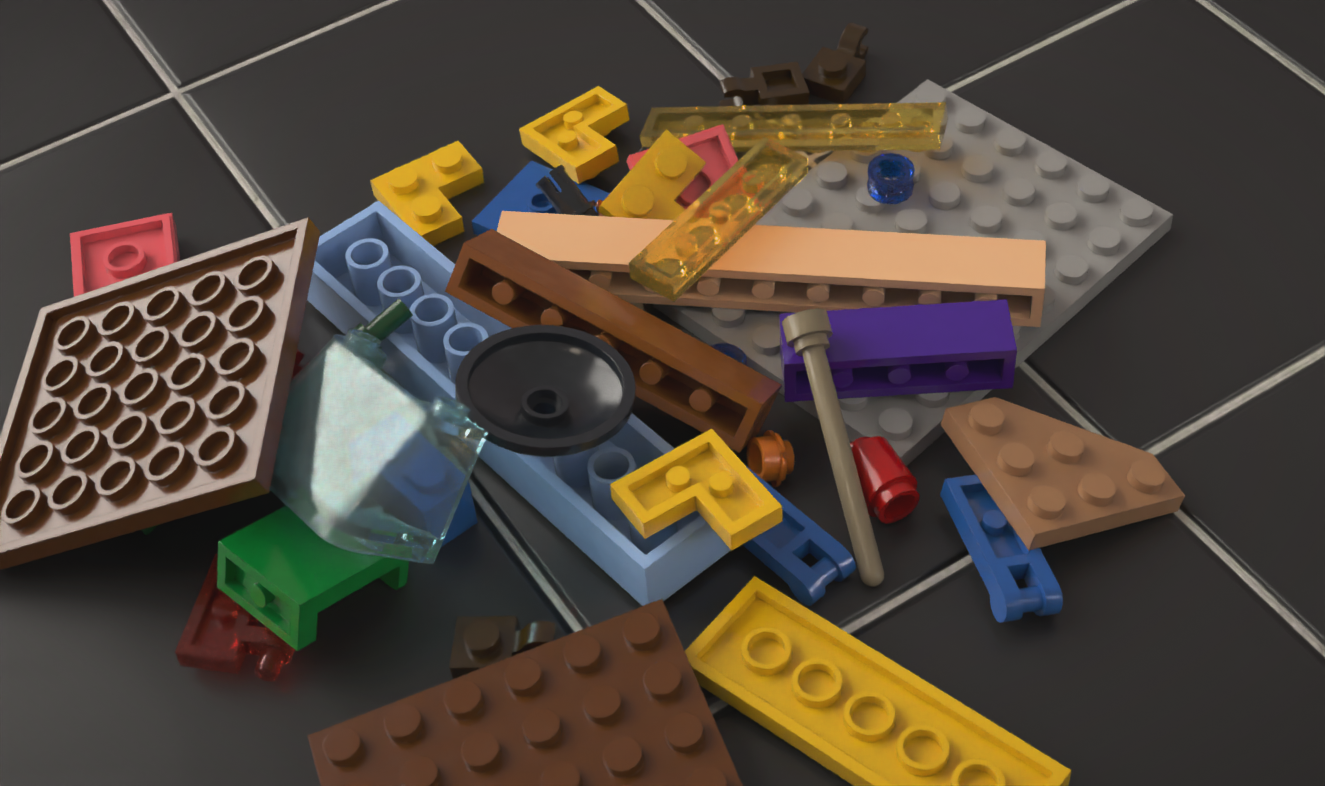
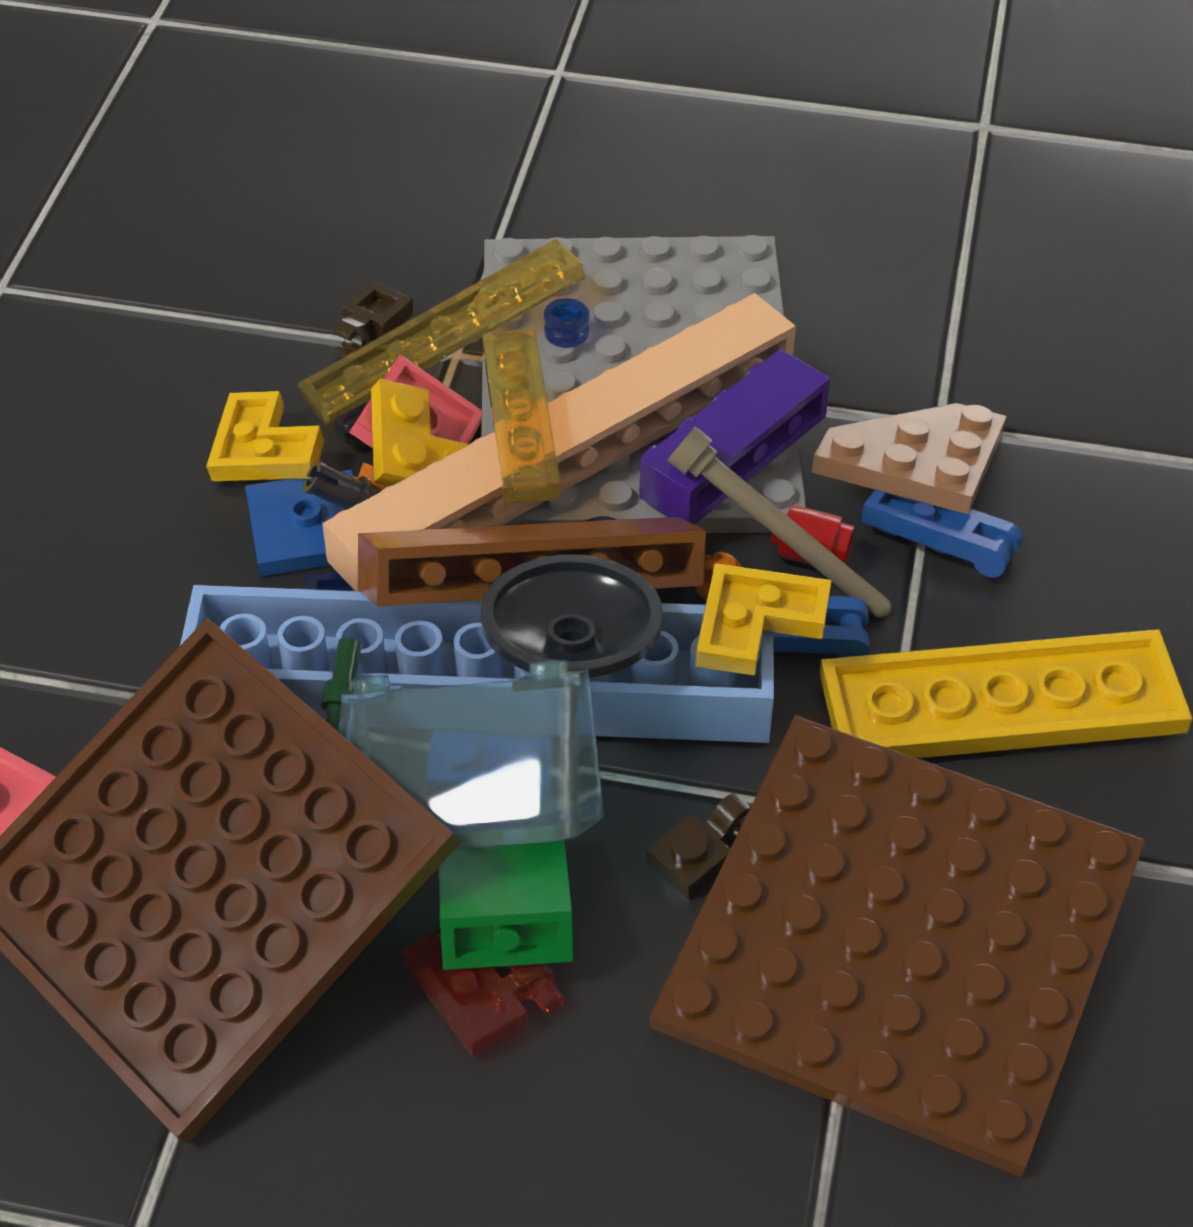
camera: 50 degrees left, 0 degrees up
(422, 190) = (172, 563): yellow plate -> none
(839, 72) = (401, 270): dark brown plate -> none

